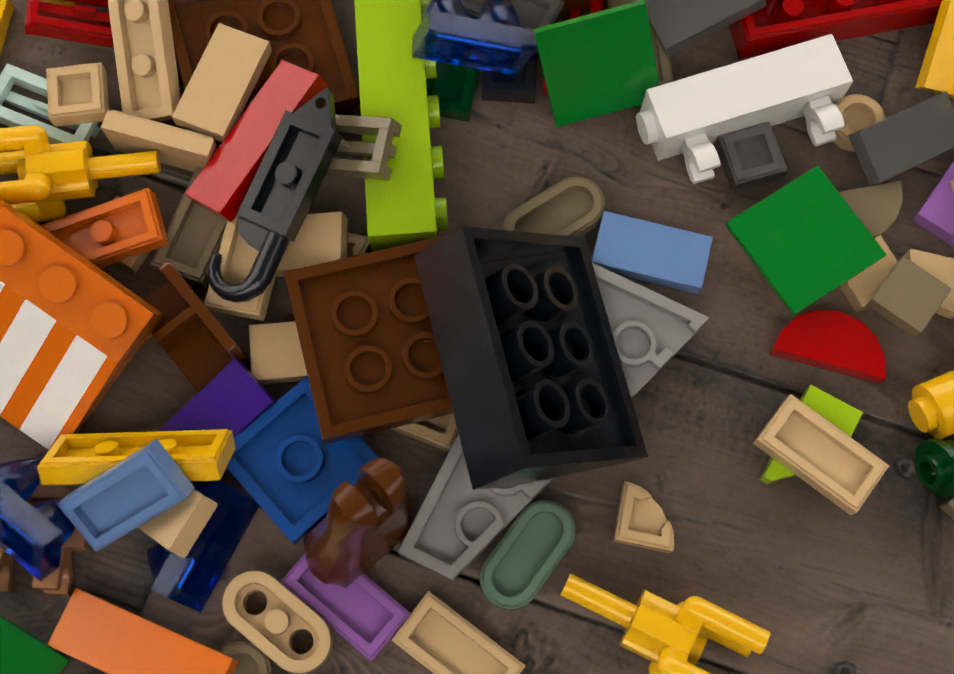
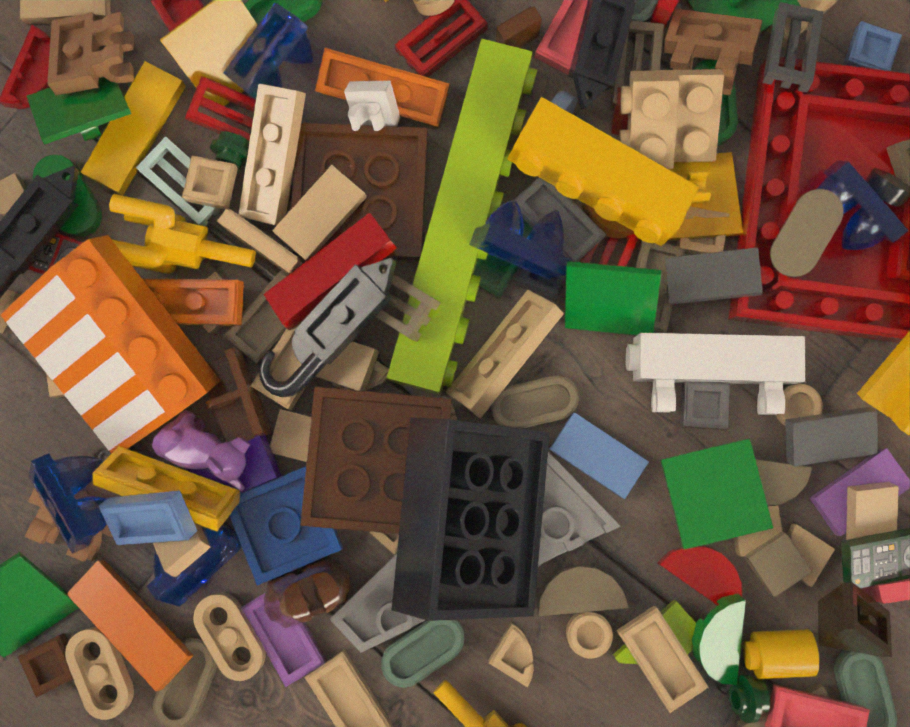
camera: 25 degrees right, 10 degrees up
(91, 46) = (231, 148): none -> dark green plate
(158, 401) = (190, 447): none -> medium lavender animal
(500, 161) = (504, 353): none -> tan plate
(692, 414) = (579, 591): none -> dark tan tile
(722, 463) = (589, 634): none -> tan tile
(878, 407) = (719, 639): none -> tile

